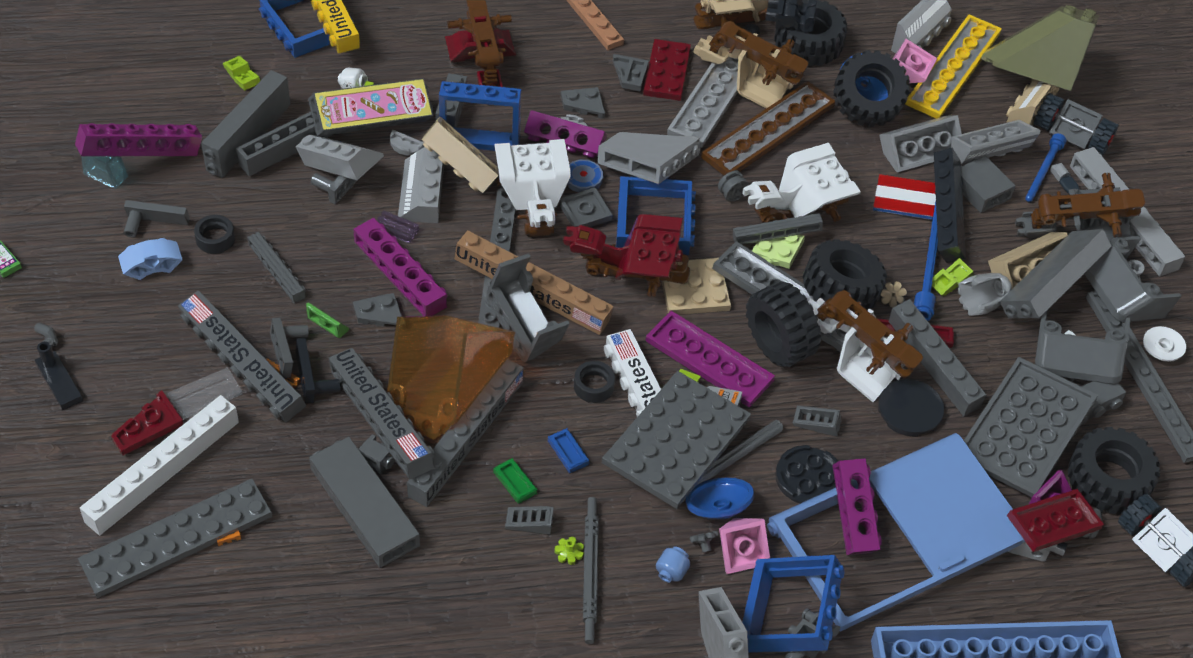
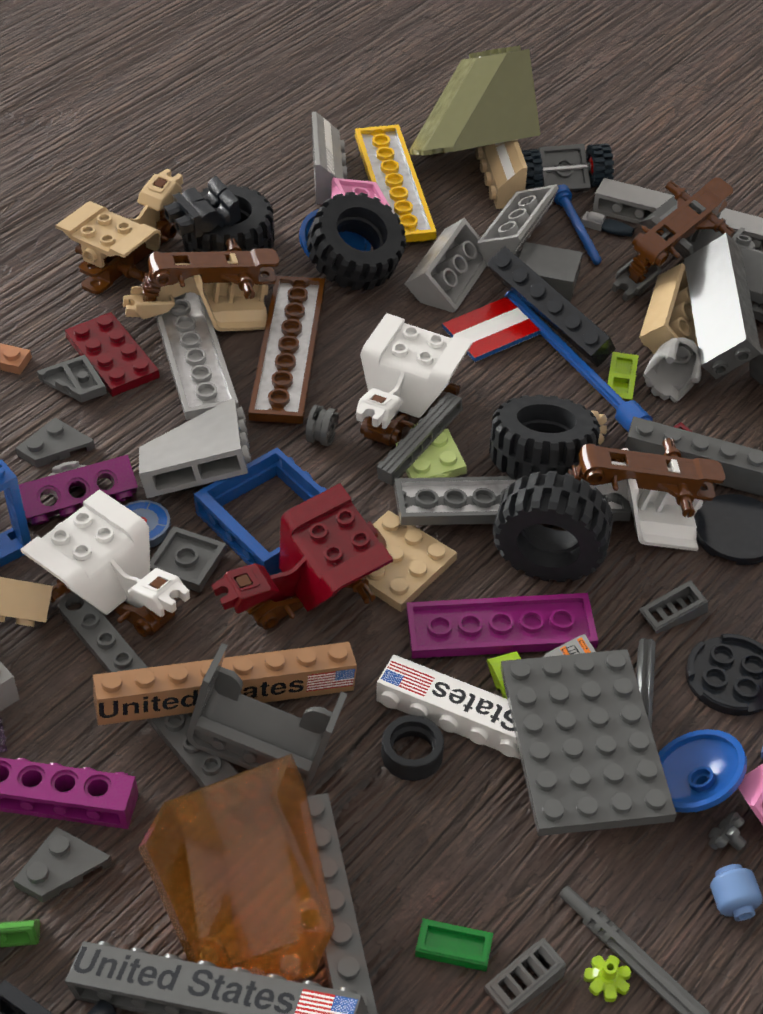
camera: 40 degrees left, 5 degrees down
(568, 450) = (471, 854): blue tile -> none

